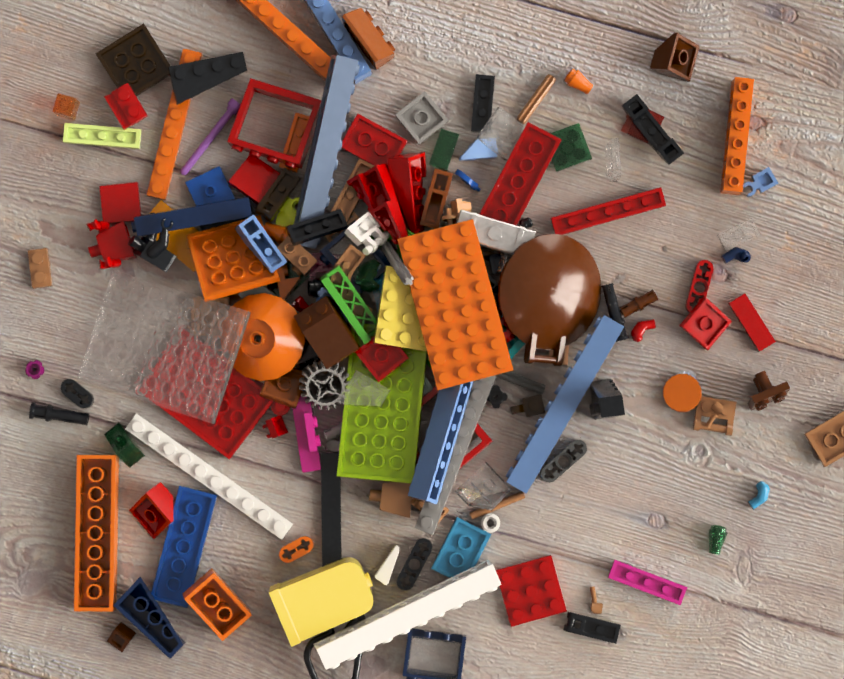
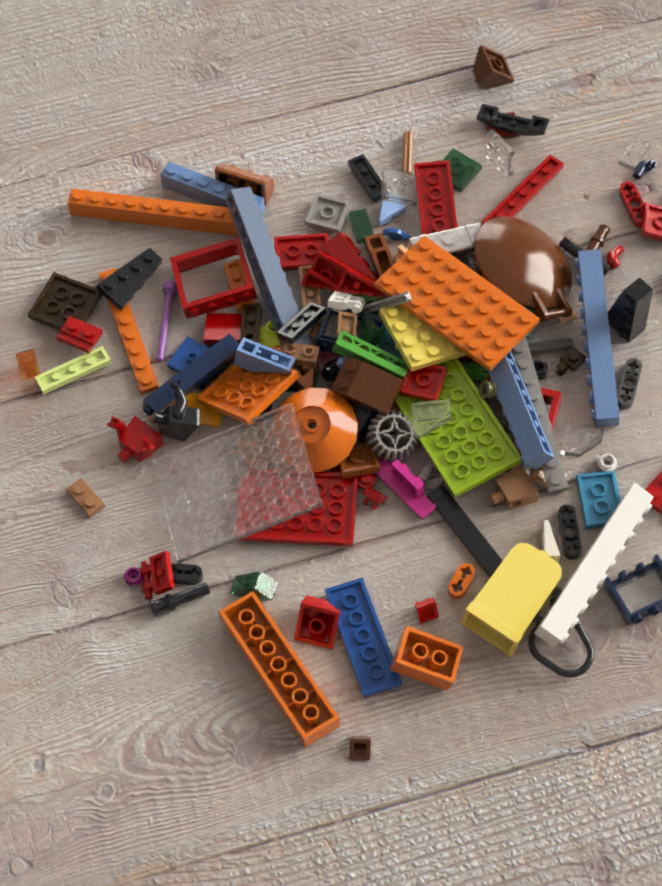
camera: 30 degrees left, 25 degrees down
(52, 384) = (161, 573): none -> red plate
(120, 202) = (122, 406): red tile -> none
(144, 612) = (376, 708): dark blue wedge -> none
(209, 476) = (348, 570): white plate -> none
(249, 558) = (426, 610): none -> red tile
(428, 401) = (488, 389): none -> olive bush
(506, 501) = (602, 447): medium nougat bar -> none
(578, 81) = (430, 123): orange cone -> none
(737, 136) = (579, 91): orange brick -> none
(762, 181) = (621, 110): medium blue plate -> none

